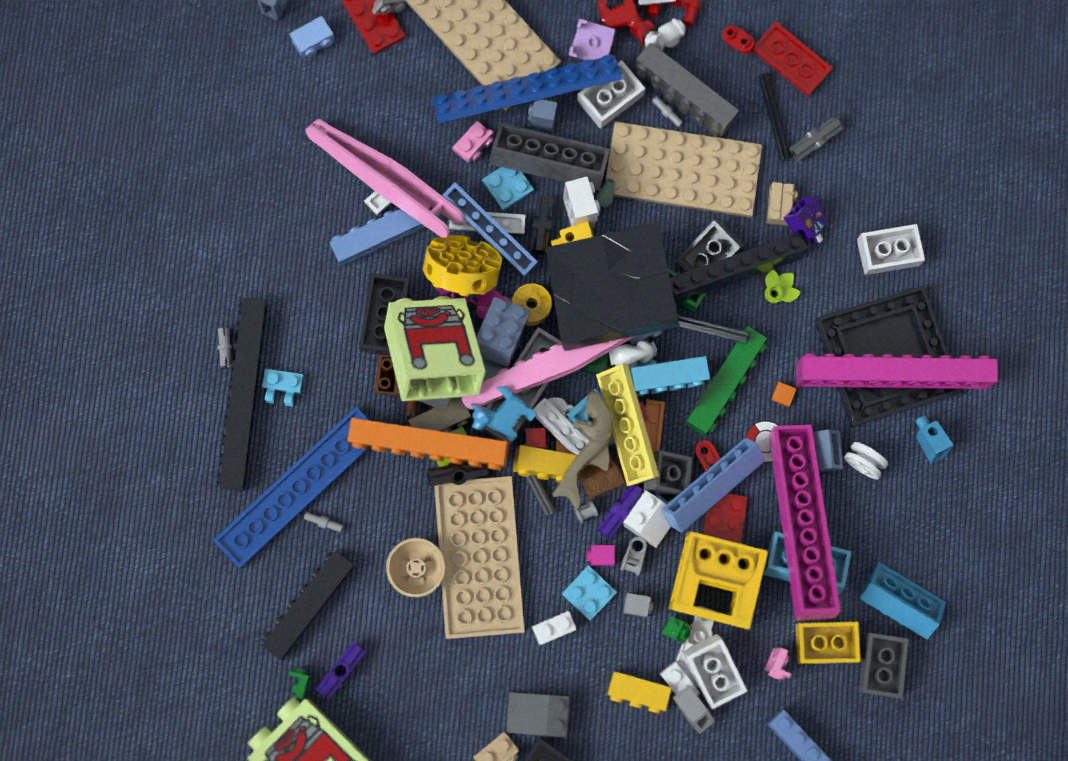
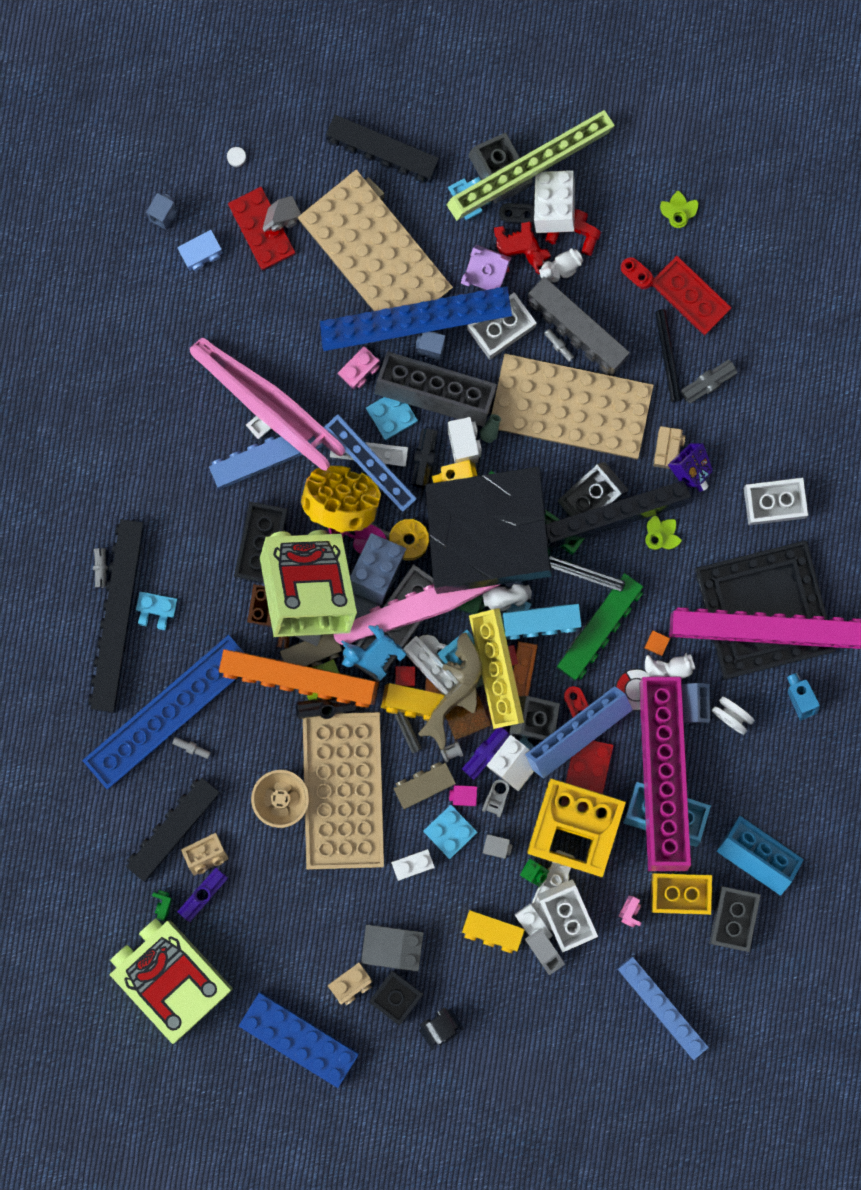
camera: 10 degrees right, 5 degrees up
(341, 629) = (204, 854): none -> tan bracket
(560, 547) = (424, 785): none -> dark tan brick
(805, 415) = (677, 667): none -> white animal

